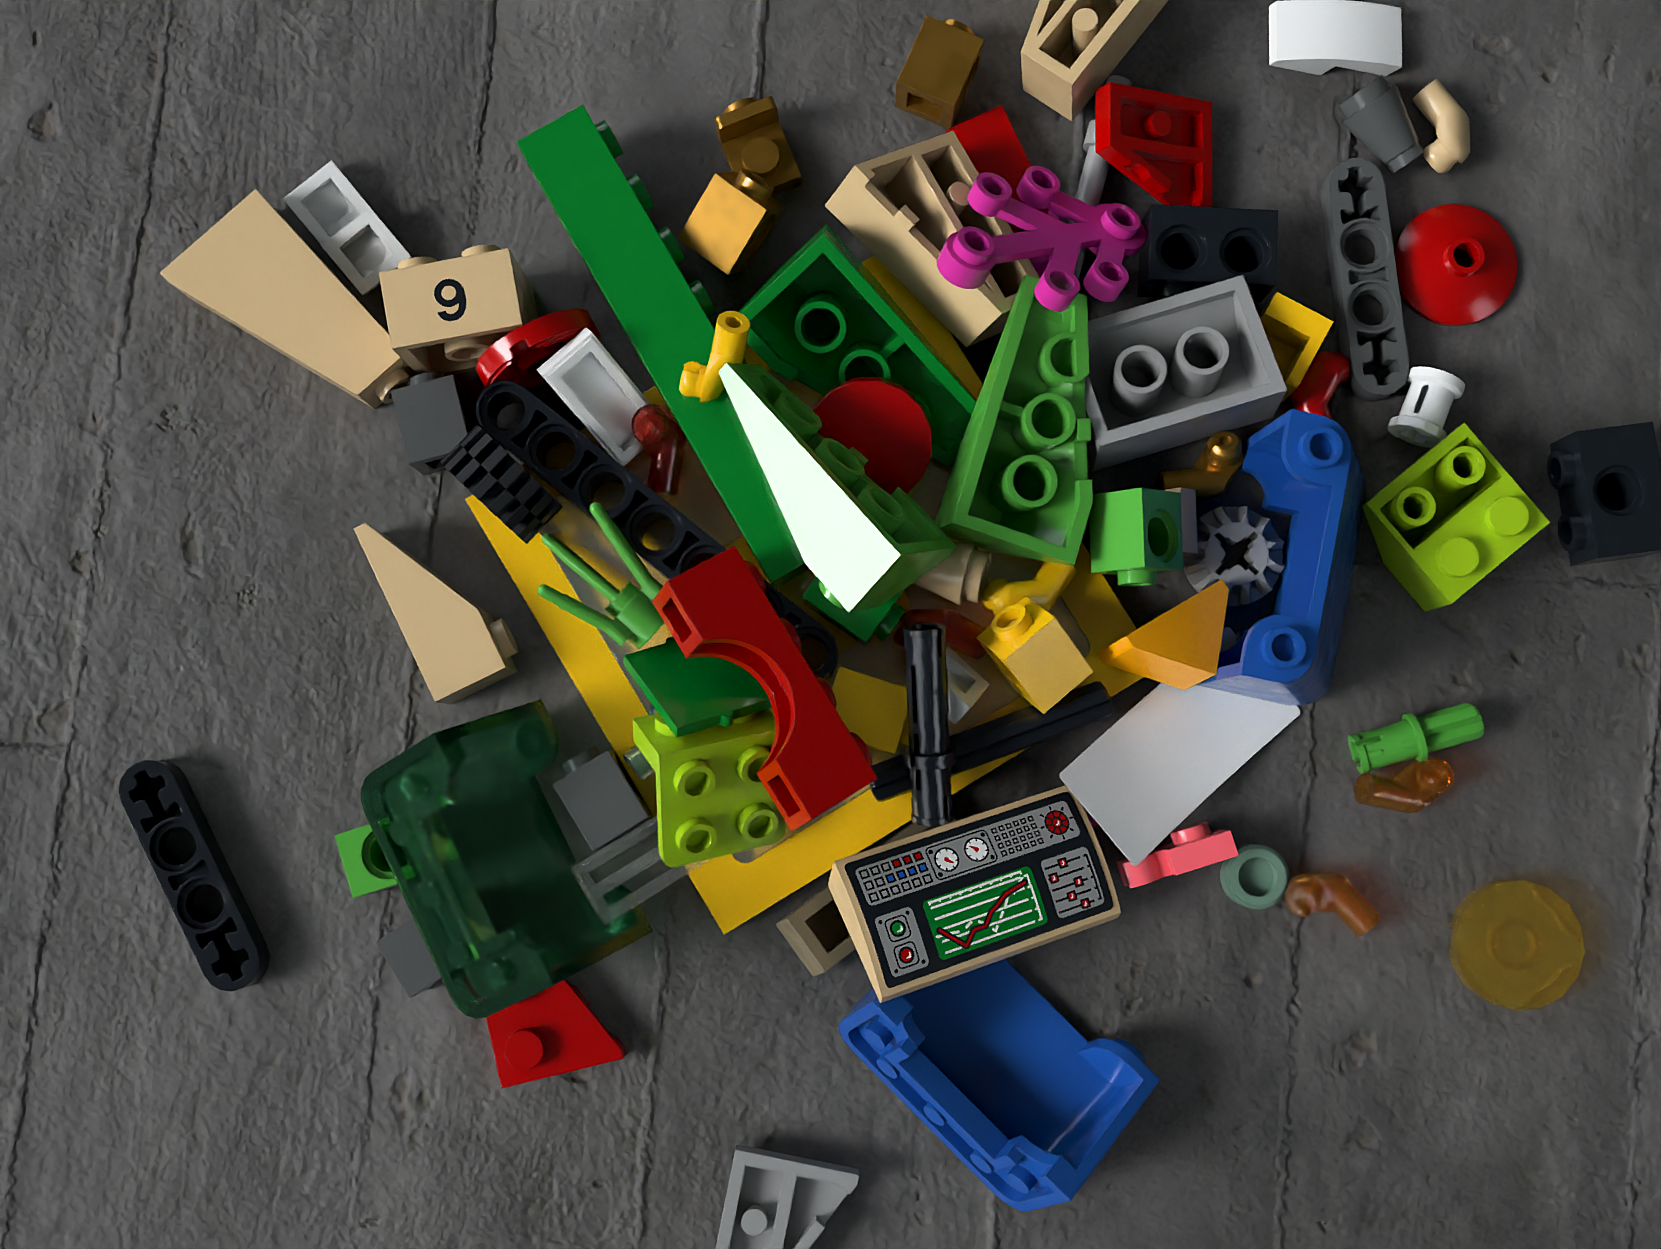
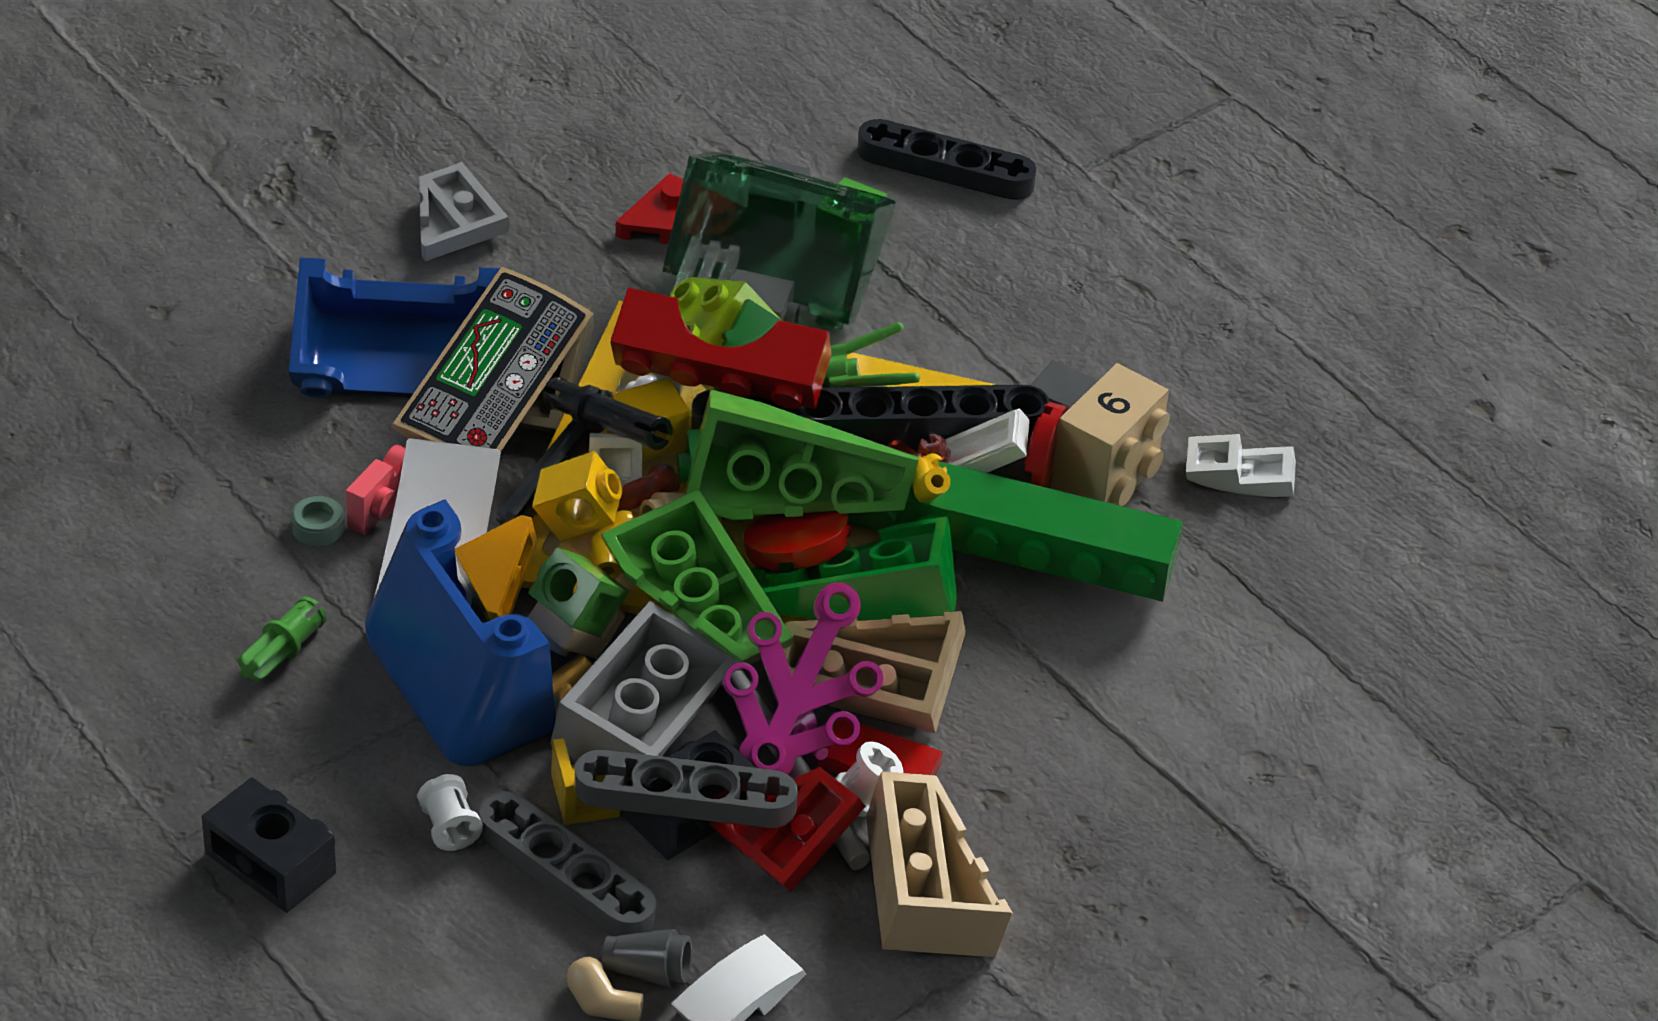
camera: 130 degrees right, 40 degrees down
(282, 293) = (1238, 395): tan slope -> none
(446, 631) = (958, 326): tan slope -> none
(501, 484) = (983, 351): black tyre -> none
(732, 220) = (1014, 599): brick -> none
(756, 142) = (1048, 665): pearl gold bracket -> none
(939, 71) = (983, 773): pearl gold brick -> none
(1046, 132) = (864, 773): none -> white bush
(1254, 212) = (684, 796): none -> dark grey beam
(1320, 383) = (529, 772): red arm -> none
(1331, 893) = (260, 540): clear orange arm -> none
(1408, 789) = (265, 608): clear orange arm -> none
(1436, 283) = (510, 928): red dish -> none
(1450, 520) = (370, 747): lime slope -> none
(1516, 944) = (109, 588): clear yellow tile -> none

